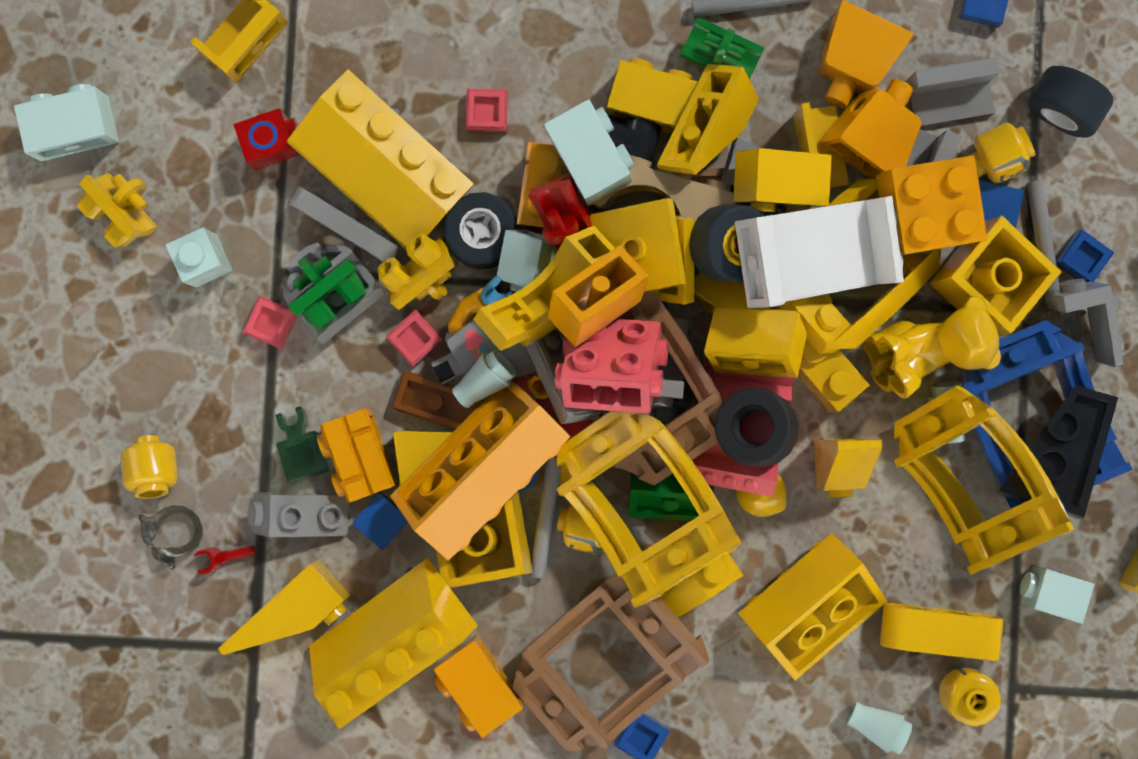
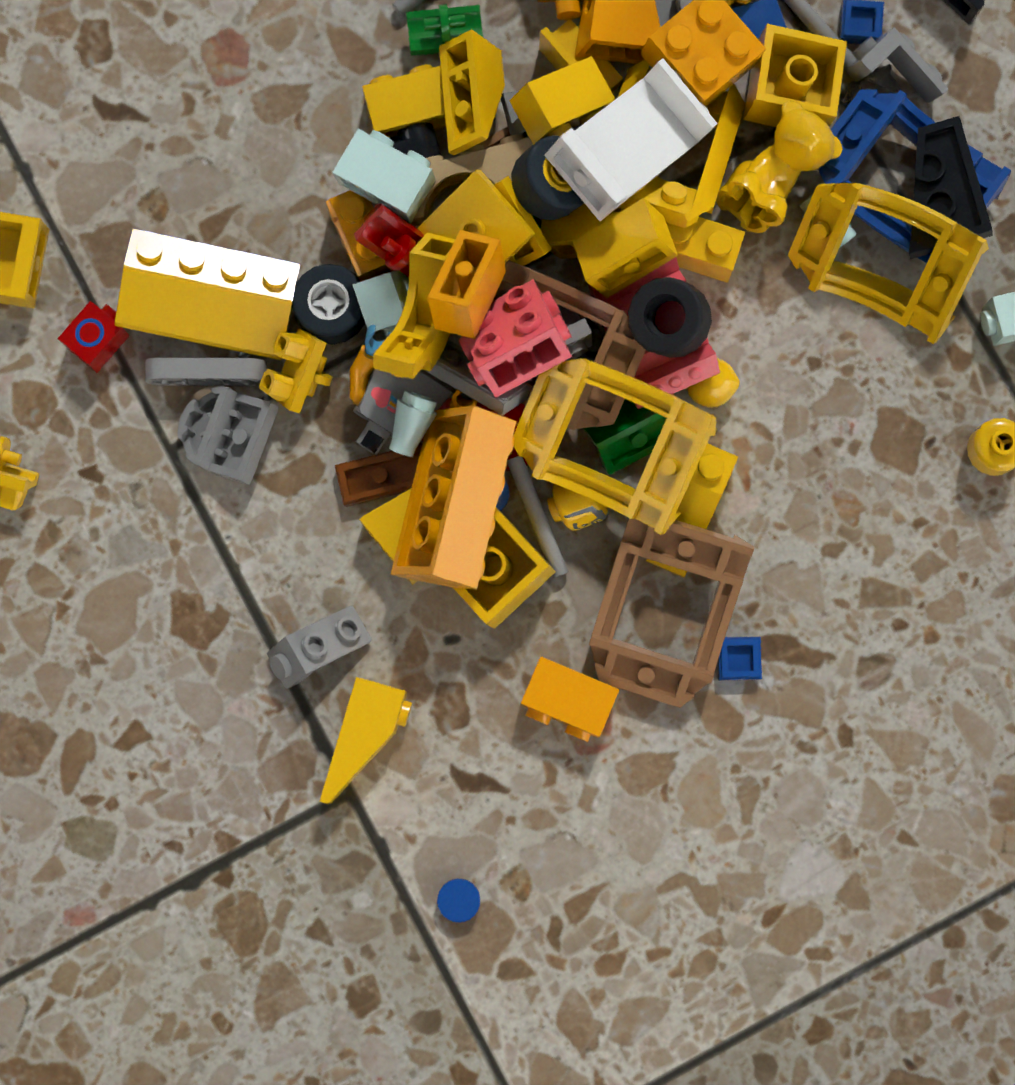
camera: 35 degrees left, 5 degrees down
(149, 467) = (161, 684): yellow head -> none
(152, 525) = (225, 752): clear smoke piece -> none
(199, 257) = (95, 473): light aqua brick -> none
(219, 557) = (274, 725): red hand -> none
(270, 322) = (191, 495): coral tile -> none
(300, 452) = (287, 589): clear green plate -> none
(312, 303) = (235, 413): green hips -> none
(357, 455) = (340, 562): light orange brick -> none
(380, 521) = (394, 609): blue tile -> none
(387, 643) = (464, 702): yellow slope -> none
(414, 338) = (327, 433): coral tile -> none
(487, 110) = (271, 200): coral tile -> none
(813, 605) = (817, 452): yellow slope -> none
(844, 464) = (765, 309): yellow slope -> none
(881, 727) = (939, 521): light aqua cone -> none
(941, 631) = (939, 407): yellow beam -> none

